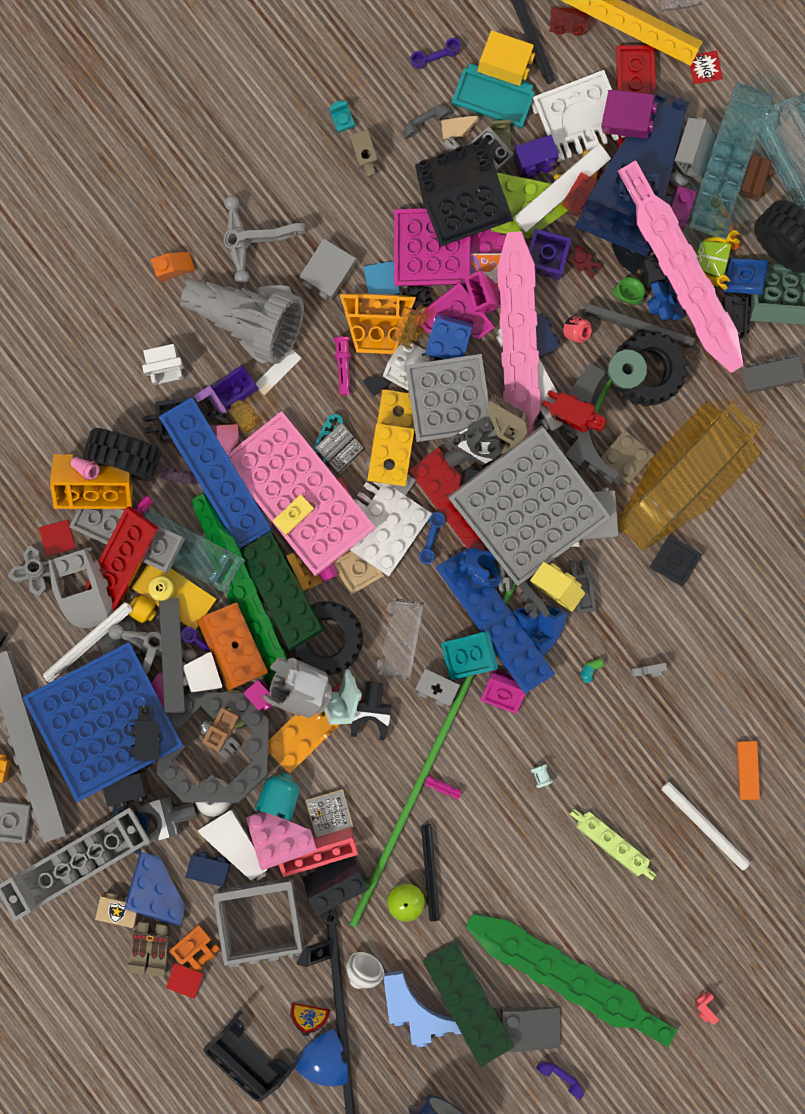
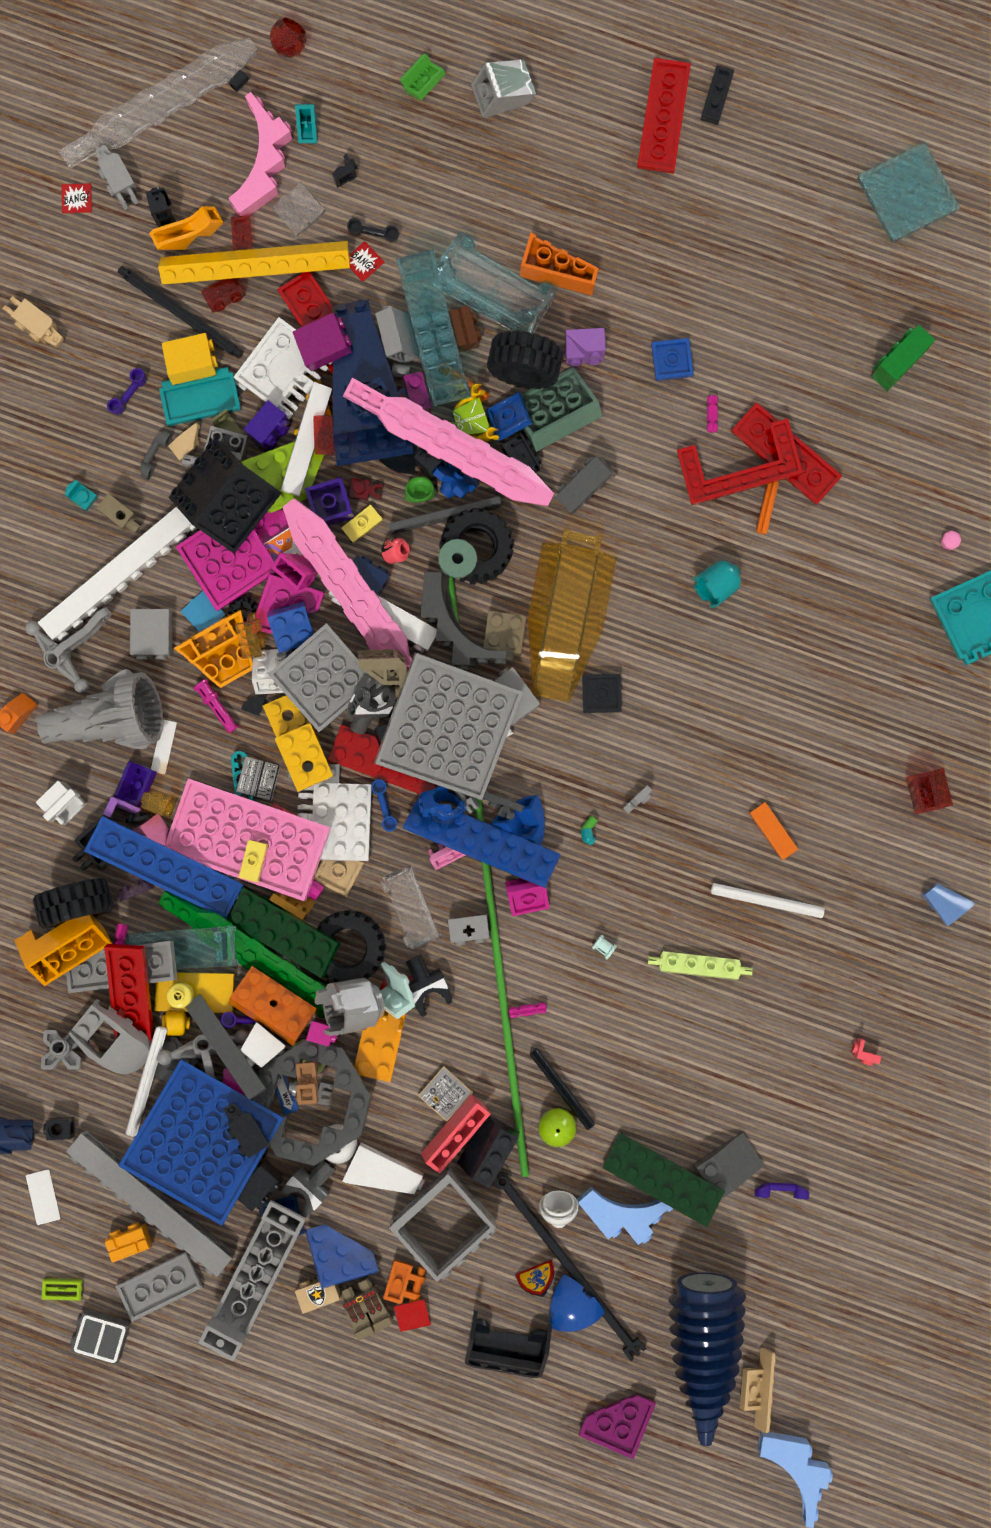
camera: 35 degrees left, 0 degrees up
(57, 538) = (64, 1008): red sticker -> none
(86, 468) = (50, 935): bright pink cone -> none
(193, 732) = (286, 1099): none -> sticker
(208, 869) = (372, 1207): dark blue hinge -> none
(278, 796) = (393, 1108): teal cylinder -> none
(278, 839) = (415, 1144): bright pink plate -> none
(316, 953) = (508, 1220): black slope -> none
(330, 202) = (116, 575): none -> white brick
(455, 613) = (443, 856): none -> bright pink plate
(469, 655) = (478, 884): teal plate -> none
(558, 586) = (516, 777): light yellow brick -> none
(563, 289) = (362, 524): none -> light yellow plate
(567, 977) = (731, 1102): green plate -> none
(574, 412) = (436, 623): red hinge -> none
(587, 603) = (539, 767): dark grey hinge -> none
(716, 35) = (390, 233): none -> black bar

